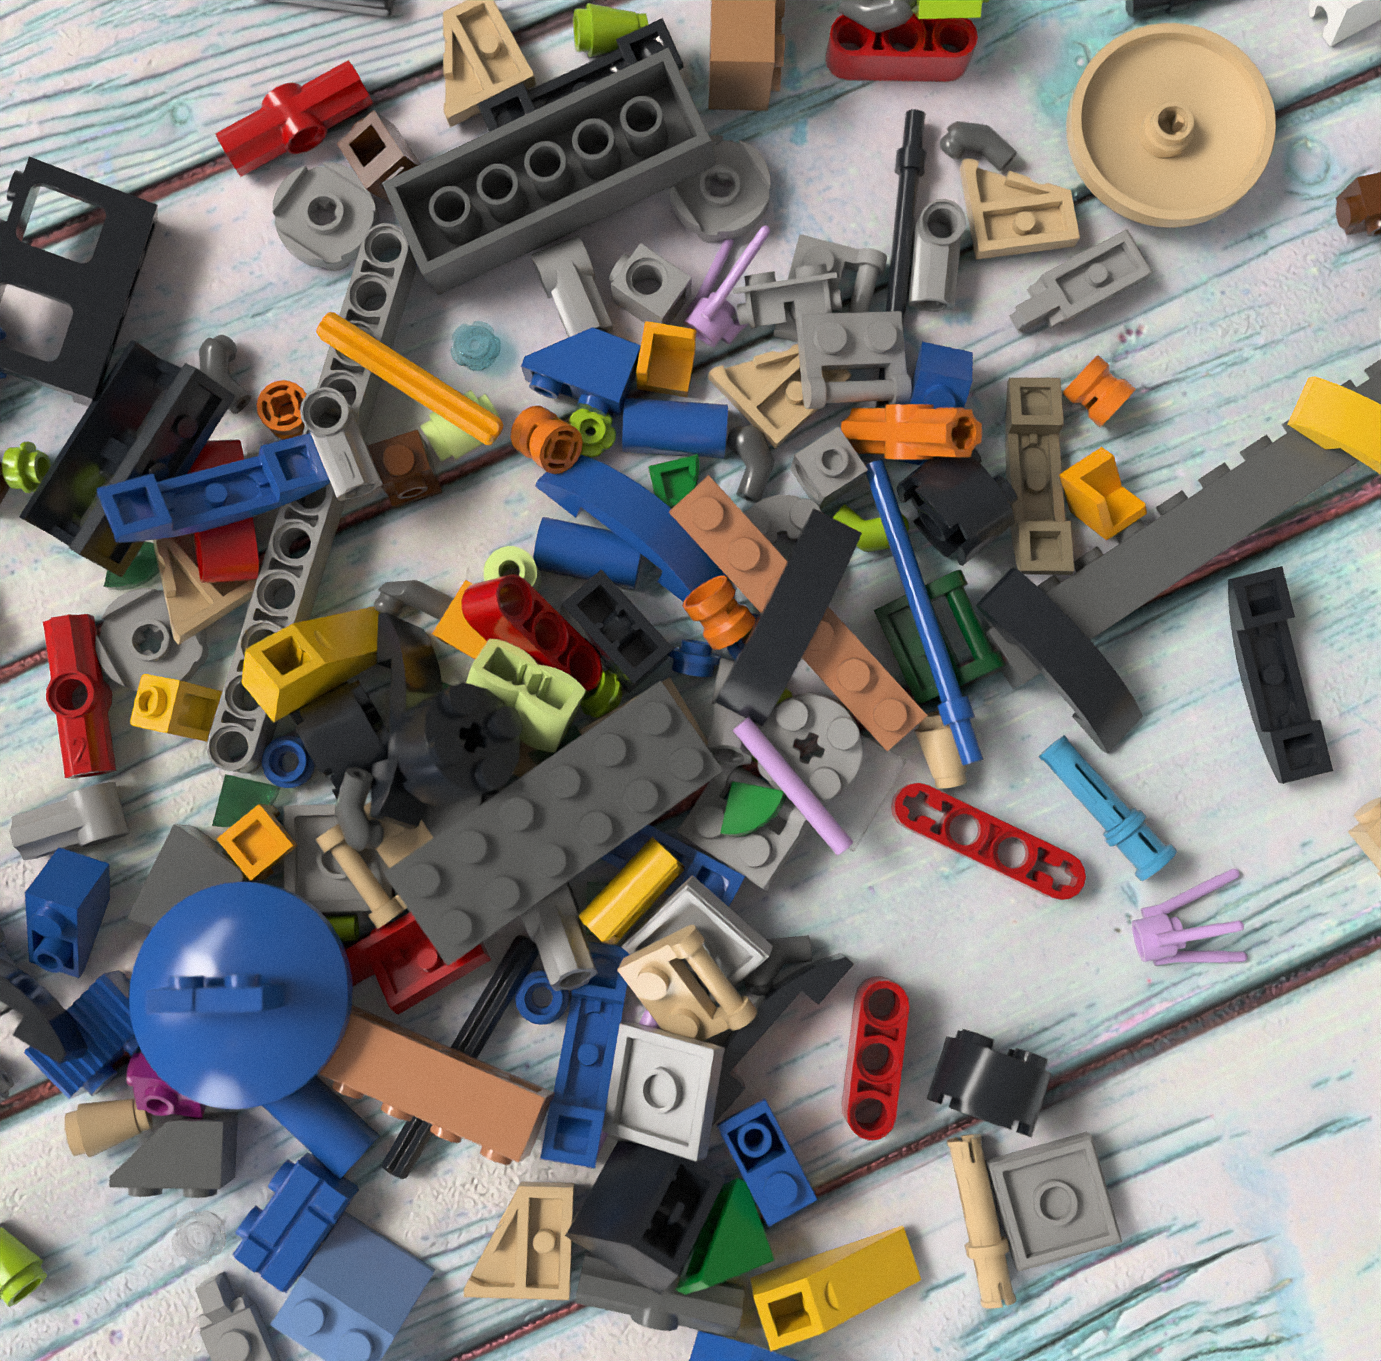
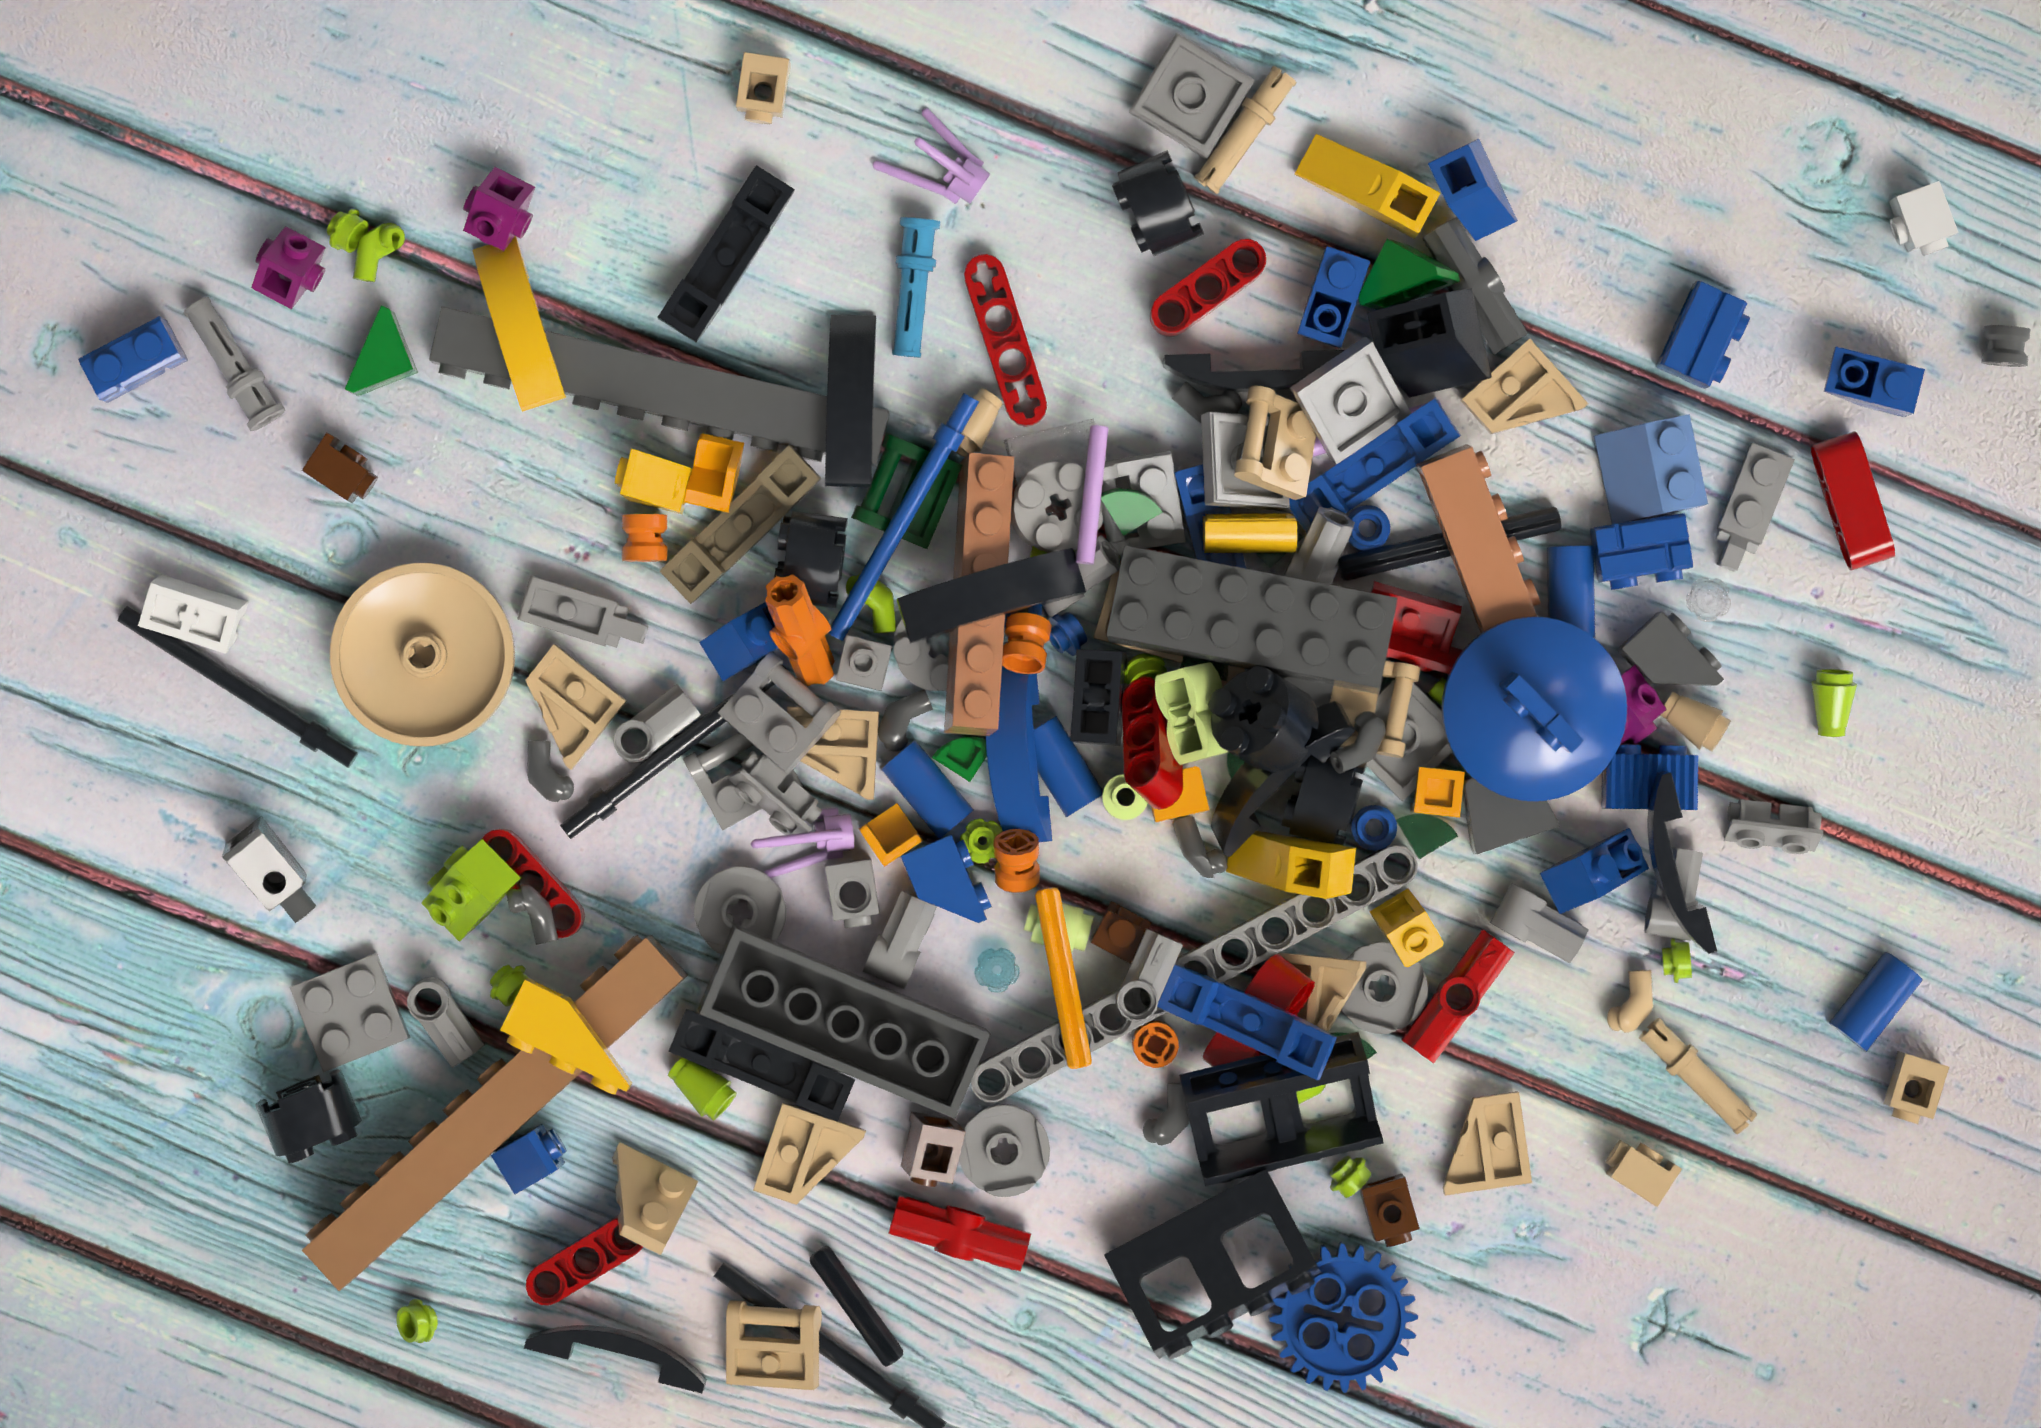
camera: 130 degrees left, 5 degrees up
(1155, 424) = (653, 481): none -> yellow slope

